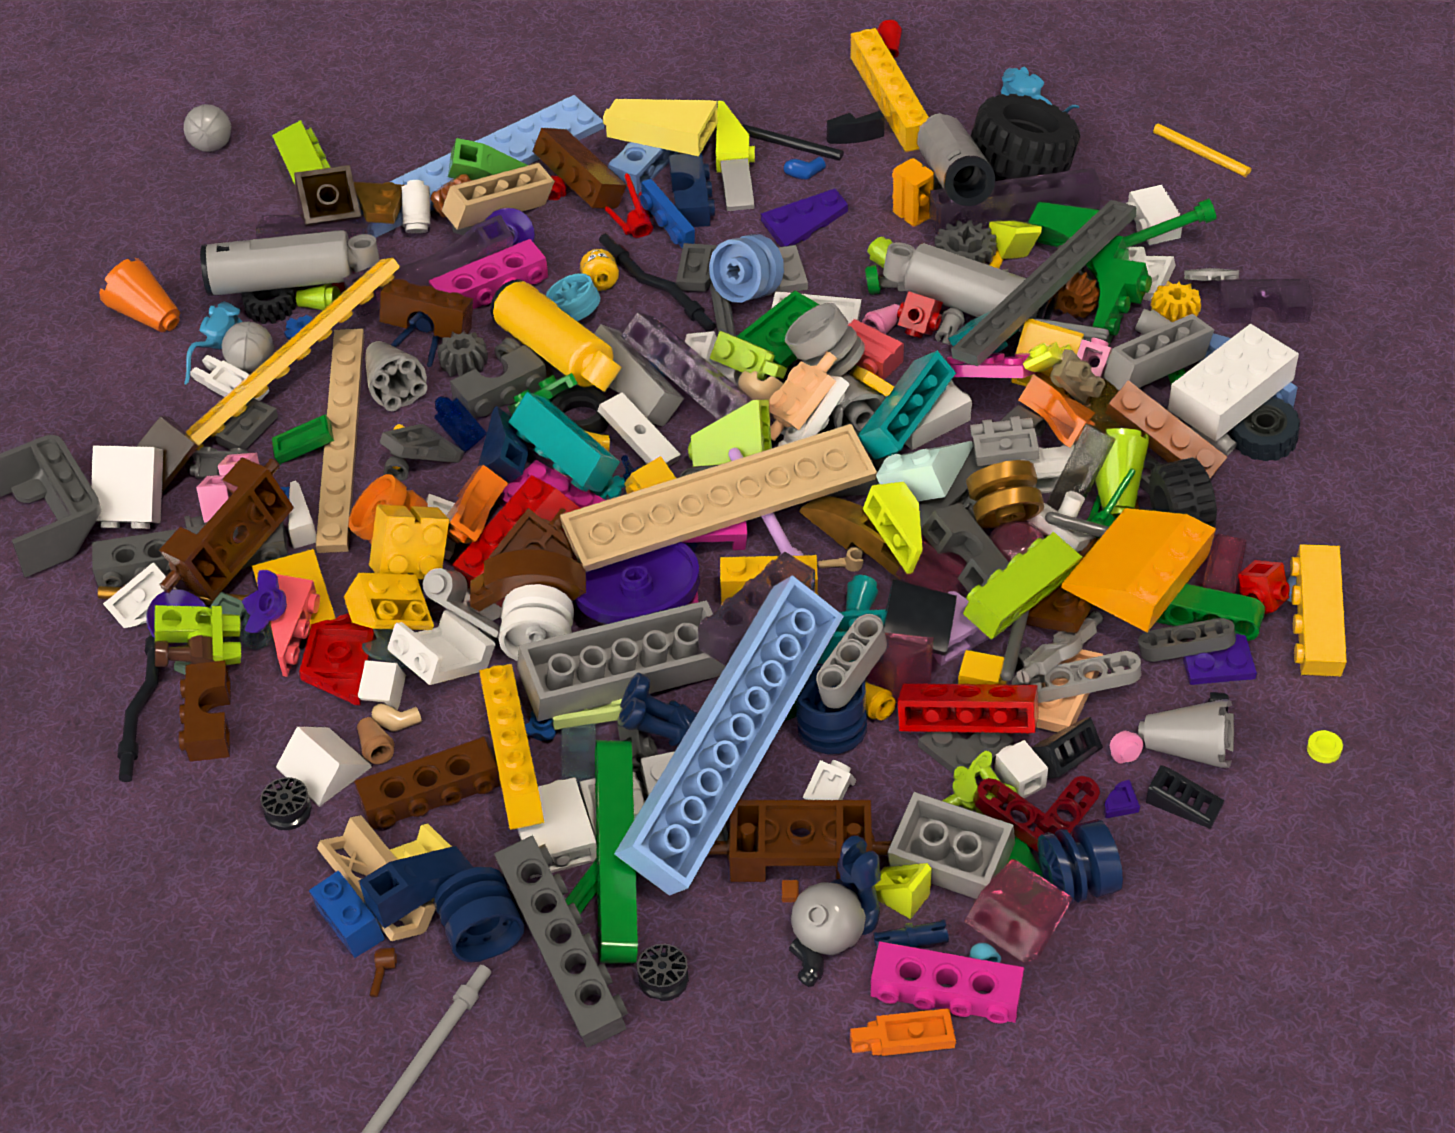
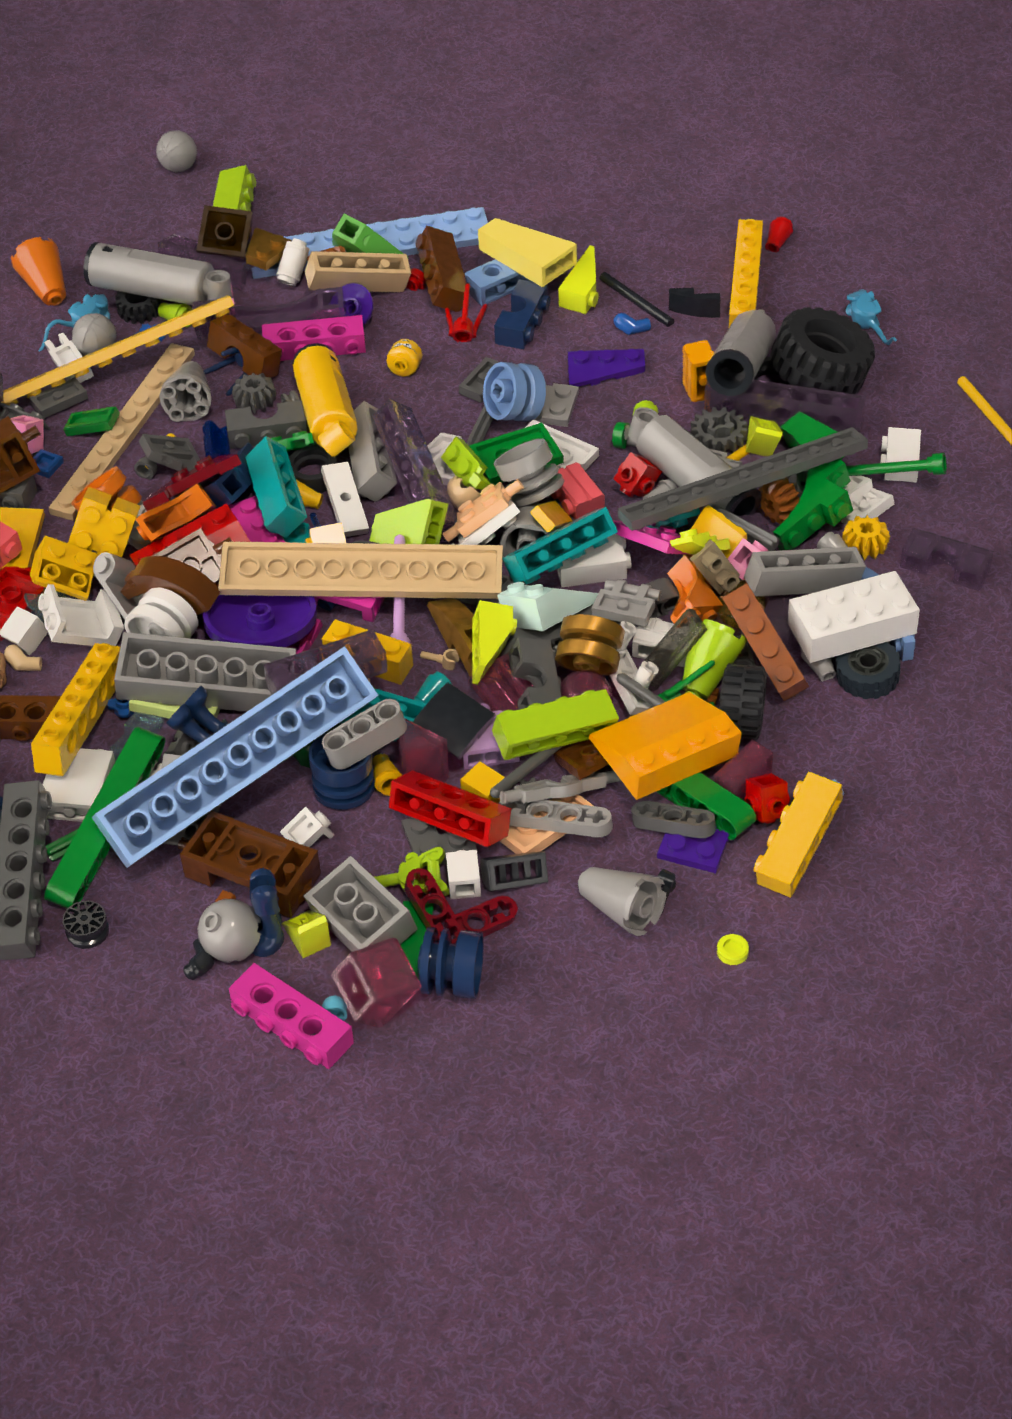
camera: 25 degrees right, 0 degrees up
(300, 522) = (49, 481): white slope -> none
(470, 453) = (185, 479): none -> dark red wing
(575, 295) = (366, 374): medium azure wheel -> none
(666, 213) = (486, 327): blue plate -> none
(691, 308) = (459, 412): black bar -> none
(737, 184) = (564, 321): light grey slope -> none
(882, 319) = (603, 471): bright pink cone -> none
(905, 1033) = (234, 1042): orange hinge -> none
(915, 935) = (291, 971): dark blue pin -> none
(1121, 801) = (532, 929): dark purple tile -> none
(1126, 747) = (562, 887): bright pink plate -> none
(1178, 783) = (572, 929): black slope -> none
(1209, 274) = (913, 520): light grey wheel -> none

